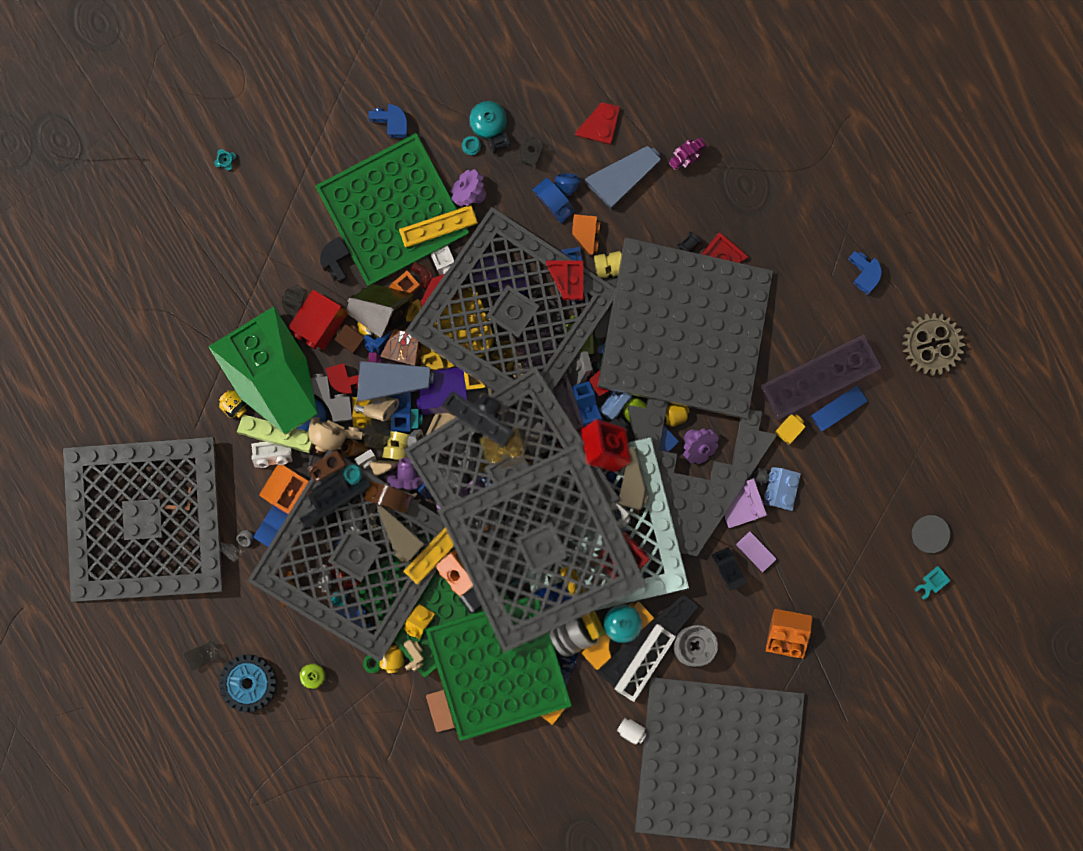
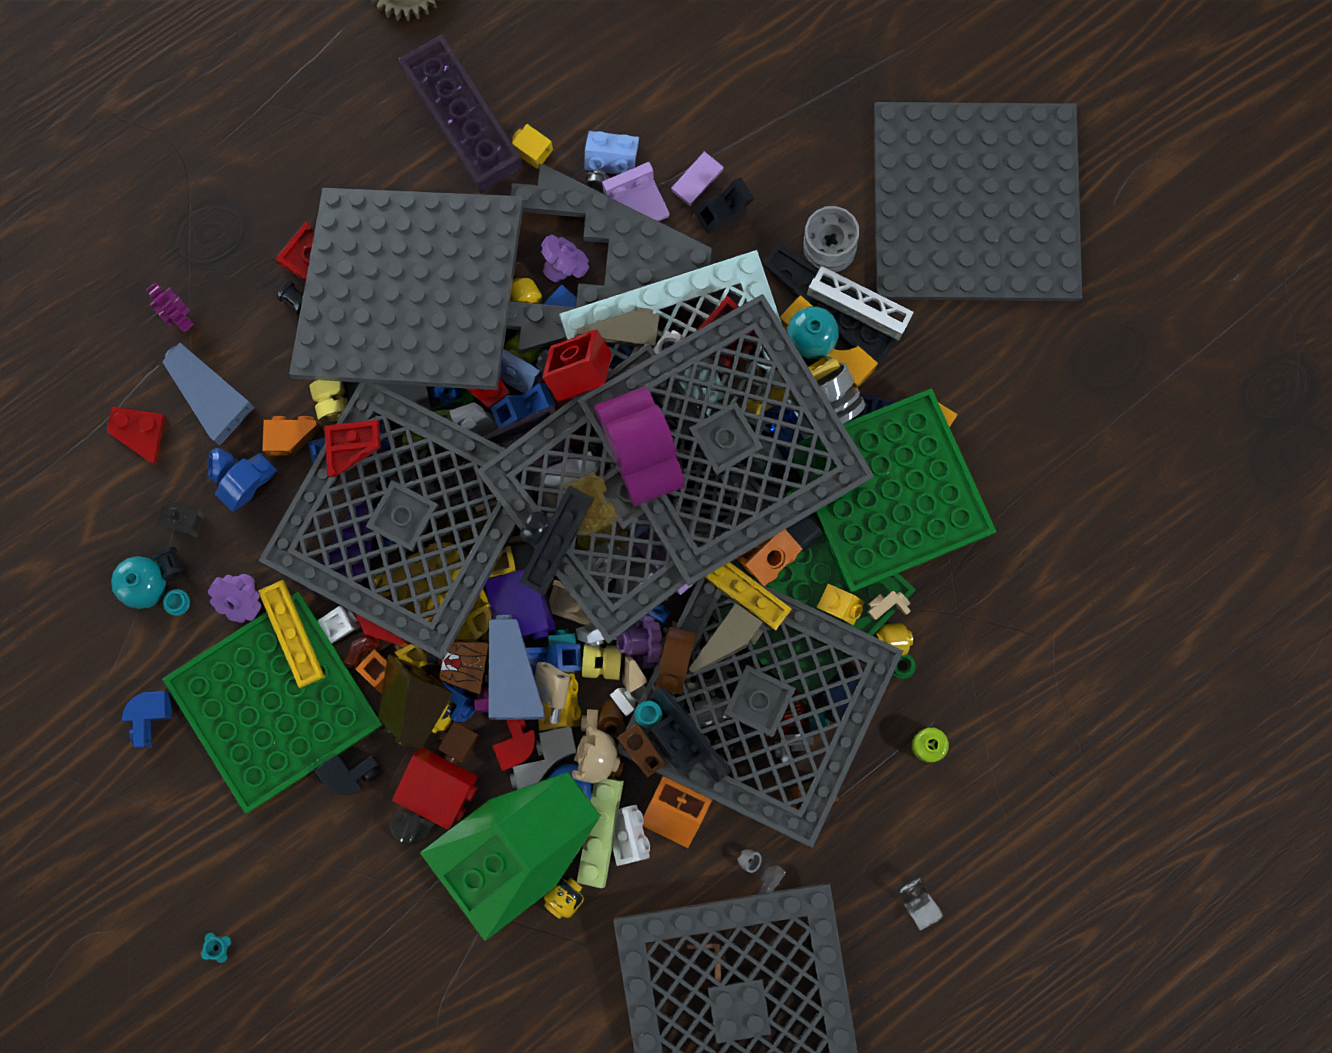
camera: 95 degrees left, 5 degrees down
(232, 683) = (971, 841): wheel -> none
(270, 525) = (730, 824): blue brick -> none
(376, 433) = (587, 690): clear smoke brick -> none
(440, 711) = (955, 566): nougat bracket -> none
(539, 483) = (641, 445): none -> magenta brick
(632, 731) = (951, 313): white brick -> none
(789, 633) = (799, 126): orange slope -> none
(838, 408) = (500, 90): blue slope -> none
(870, 272) = (319, 65): blue brick -> none

